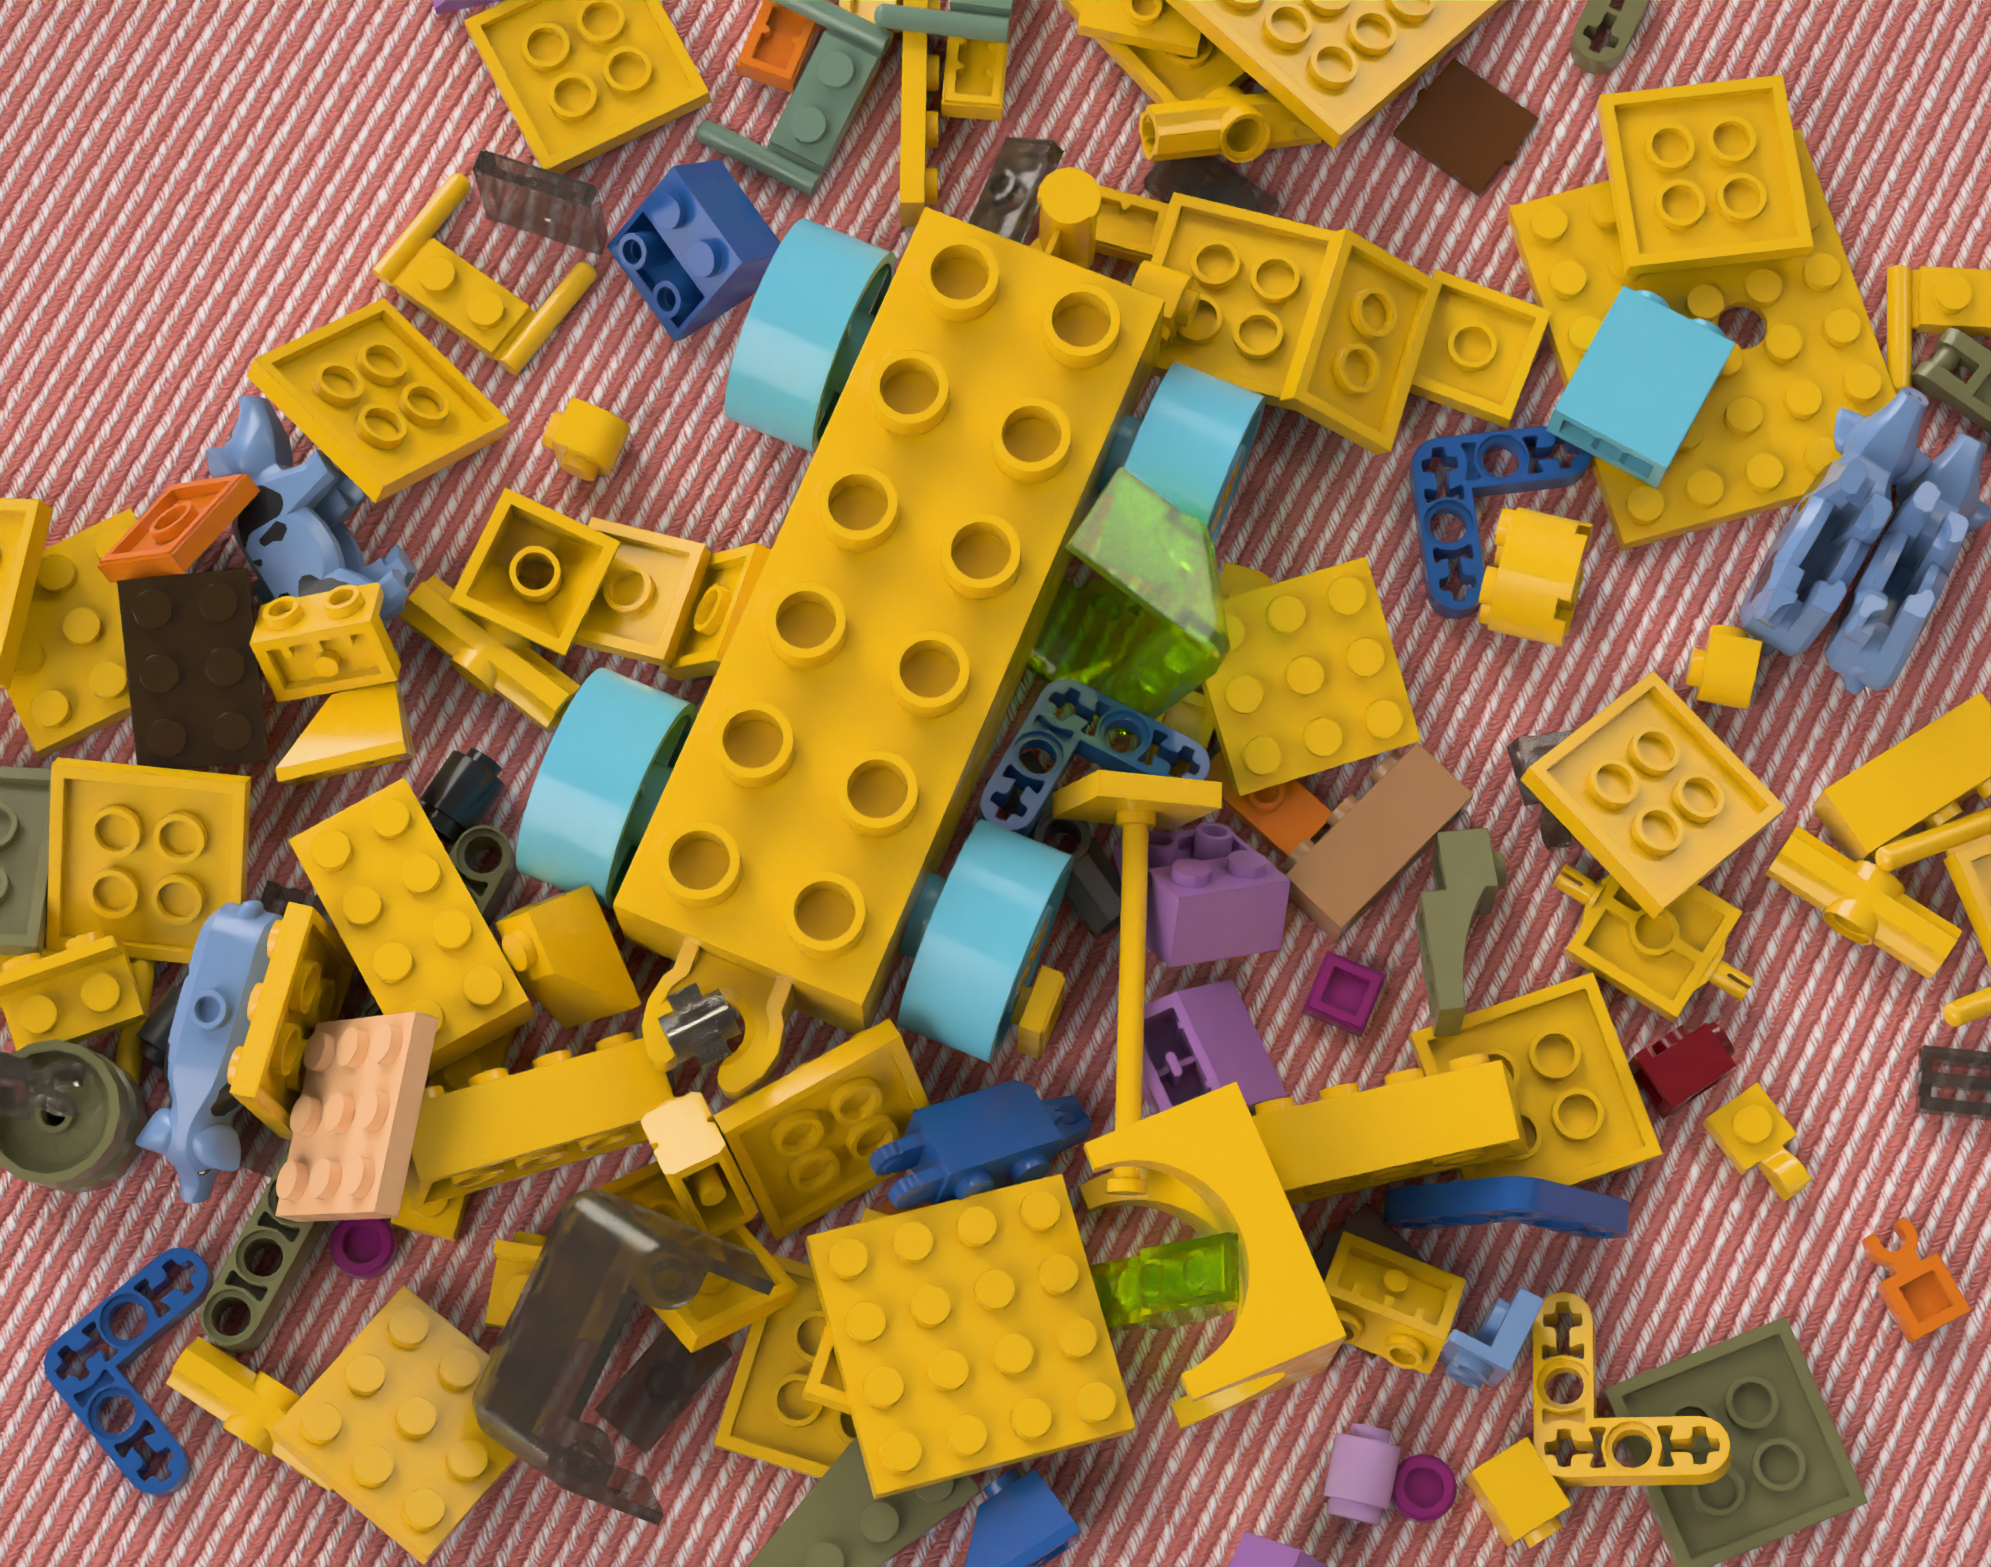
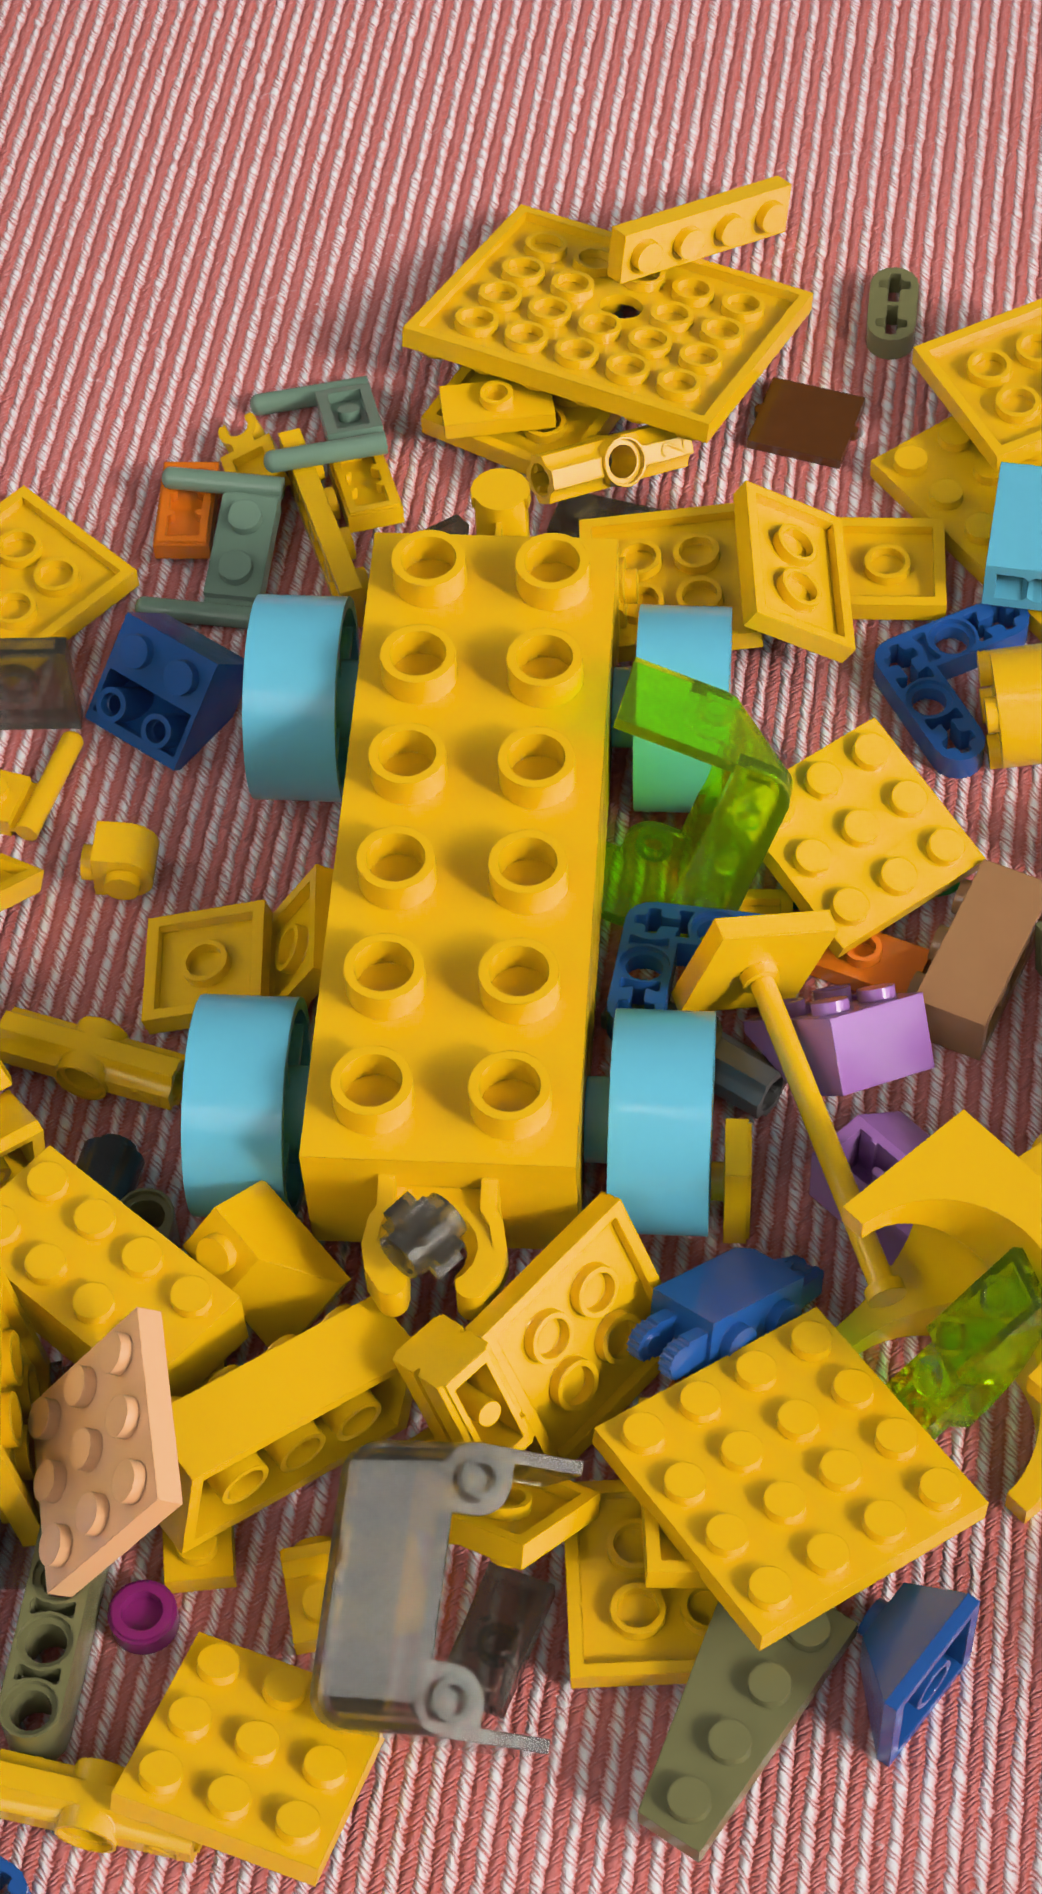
camera: 15 degrees left, 20 degrees down
(535, 572) = (112, 963): yellow slope -> none
(1344, 994) = (1008, 1095): magenta tile -> none

